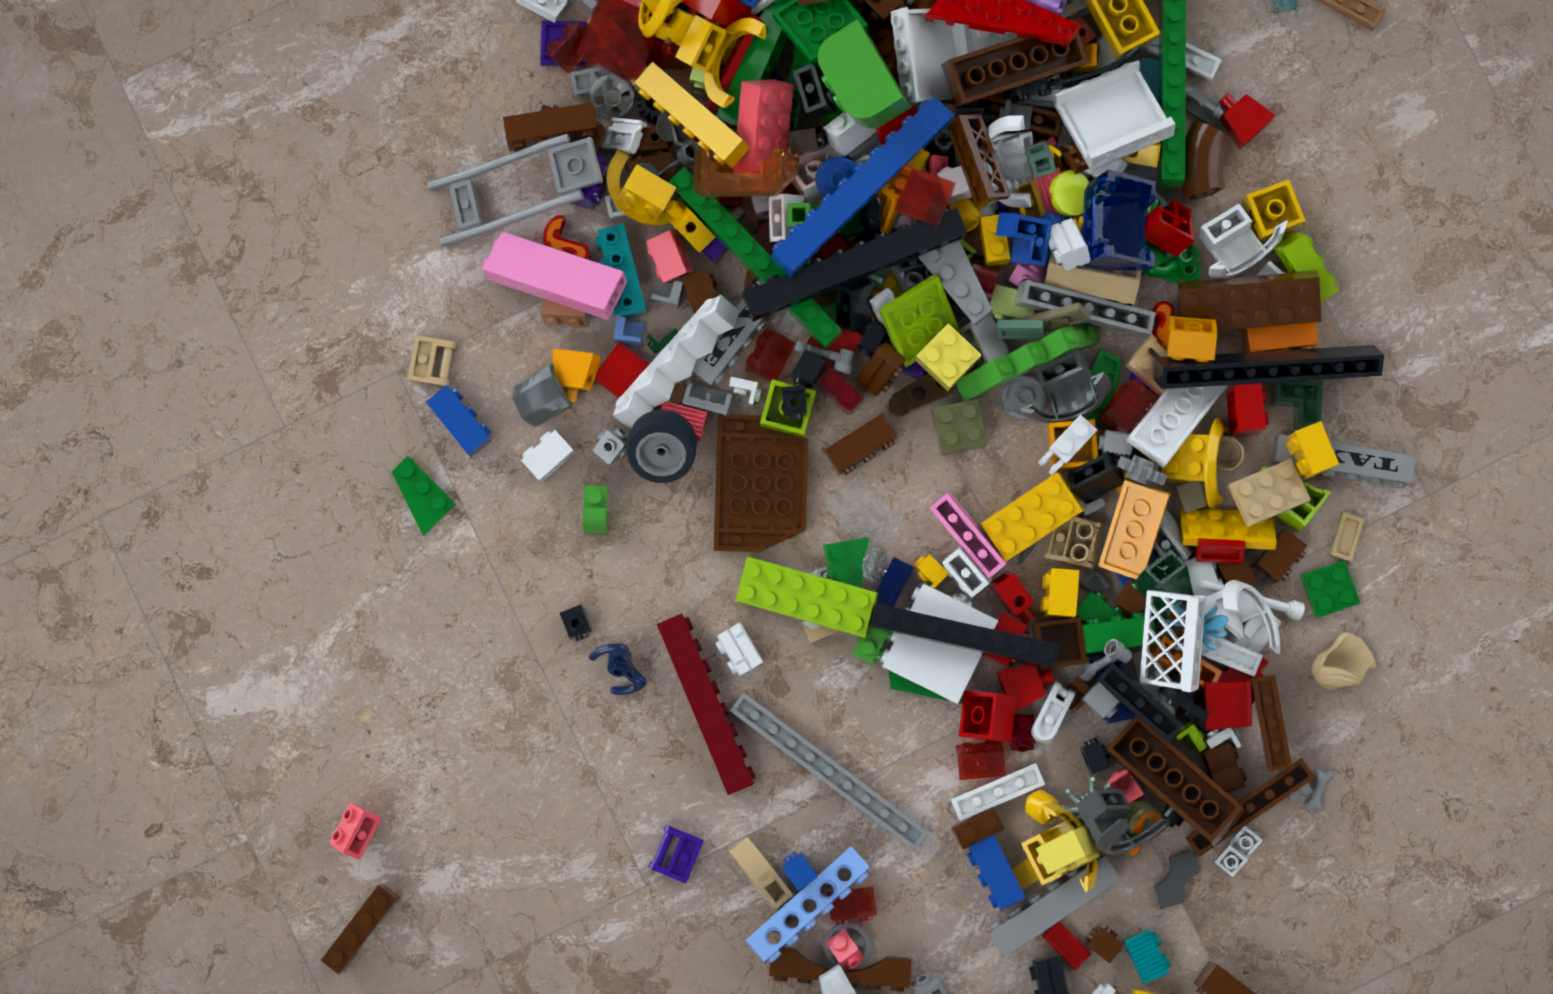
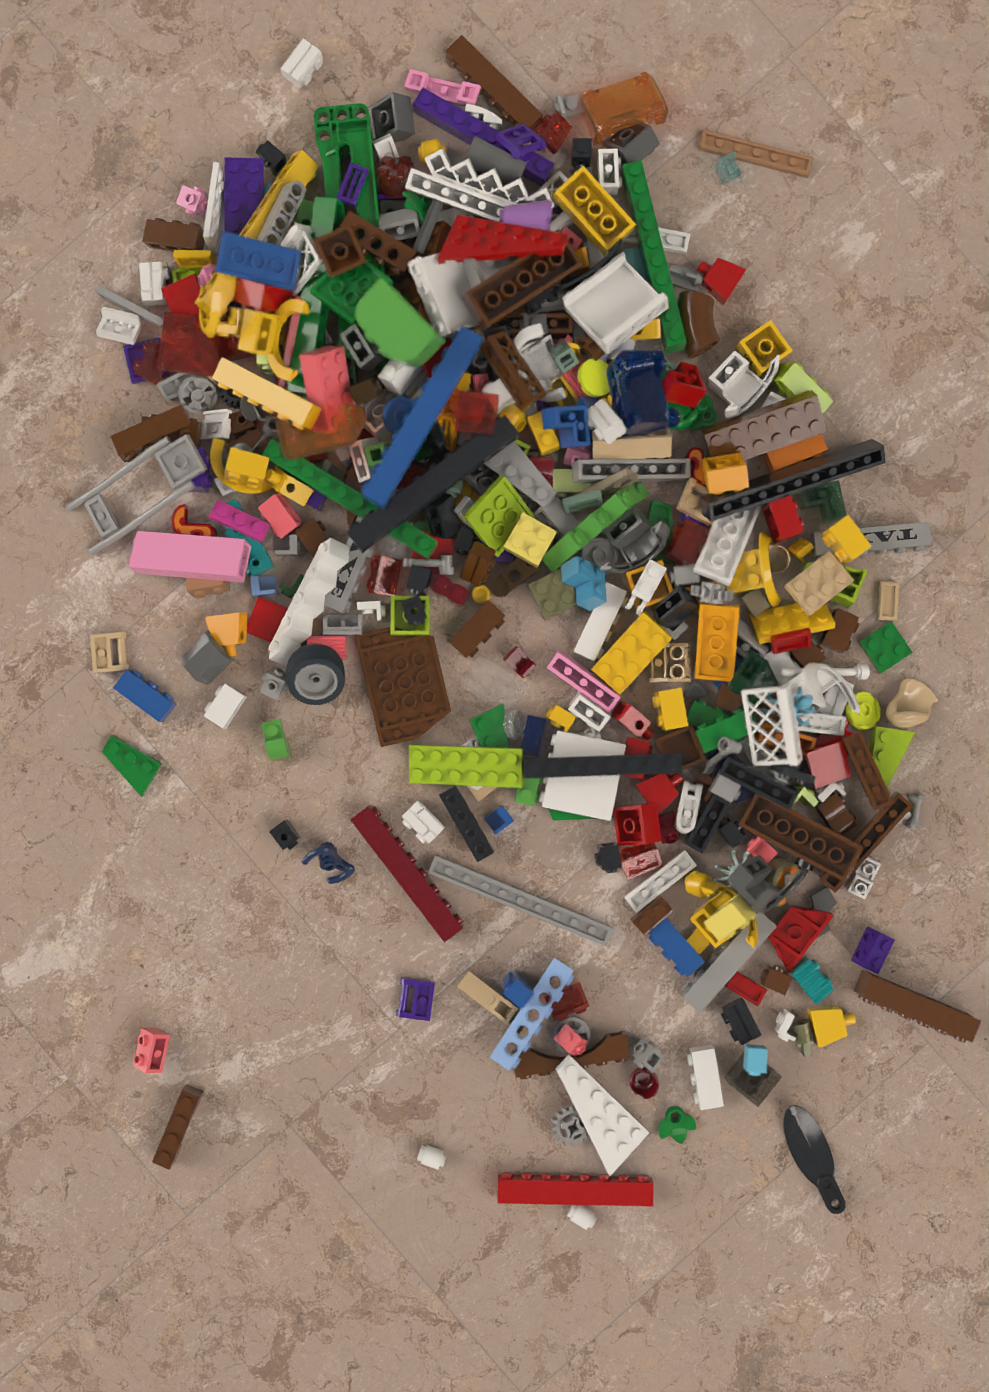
camera: 20 degrees left, 5 degrees up
(621, 250) = (239, 521): none -> dark pink plate
(789, 664) = (466, 823): none -> black brick
(828, 670) = (499, 819): none -> blue panel
(875, 406) = (481, 594): none -> yellow tile
(899, 495) = (519, 662): none -> dark red bracket
(944, 746) = (608, 857): none -> black brick
(1002, 422) = (587, 581): none -> dark azure brick
(1004, 473) = (599, 624): none -> white brick
(1069, 737) = (707, 823): none -> black brick
(1142, 895) = (797, 932): none -> red wing
(1227, 940) = (872, 950): none -> dark purple bracket
(1259, 449) = (800, 549): none -> yellow tile
(1291, 656) = (869, 711): none -> neon yellow tile
(1302, 707) = (888, 749): none -> lime wedge

